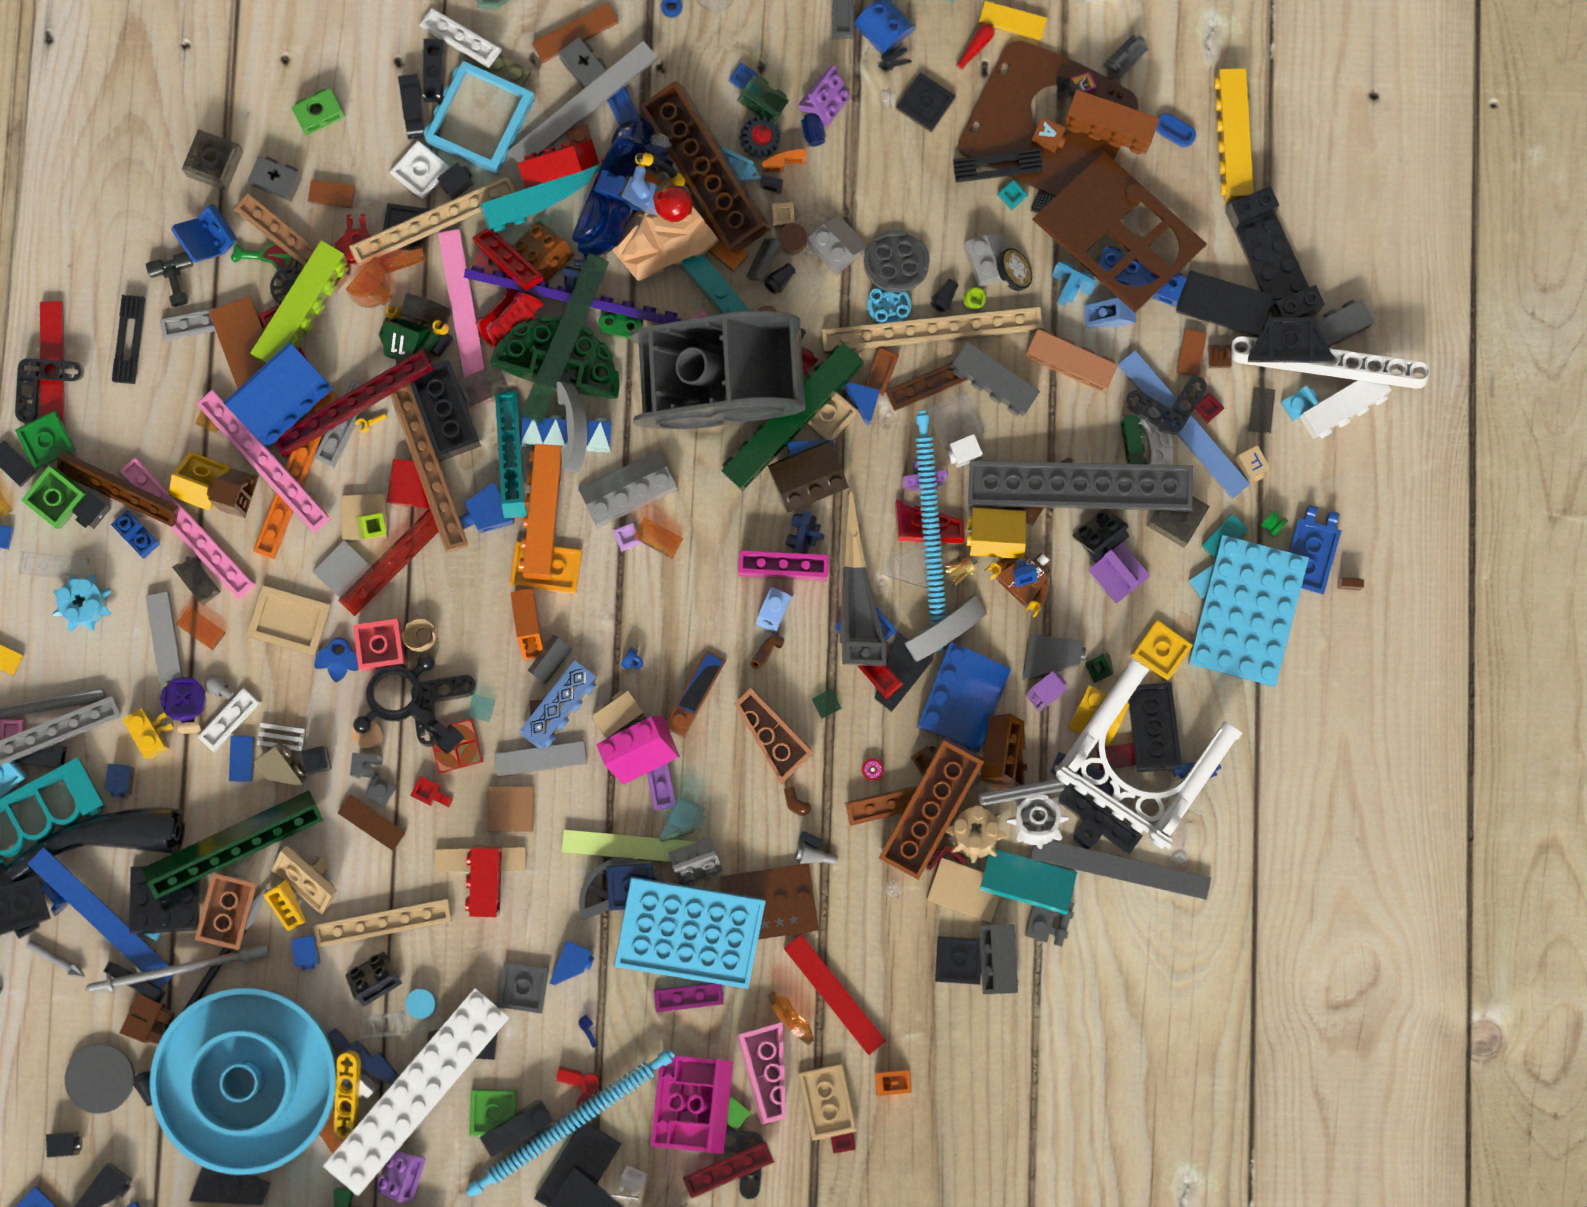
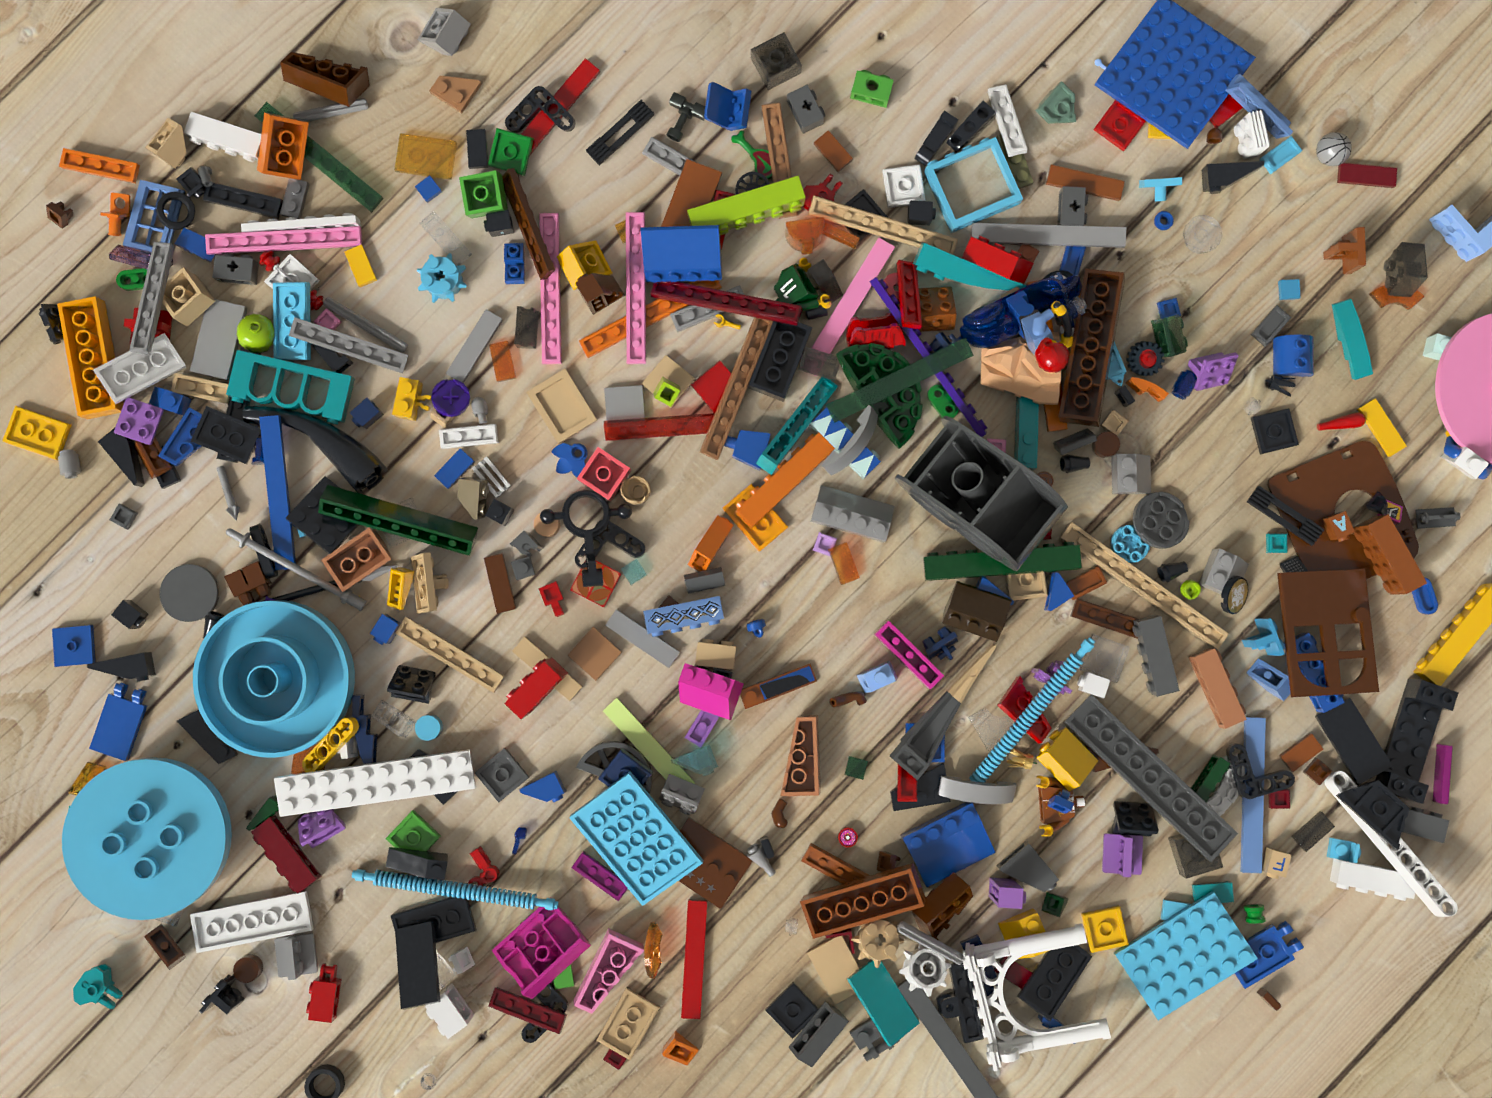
camera: 45 degrees right, 5 degrees up
(1323, 265) = (1442, 774): none -> magenta tile

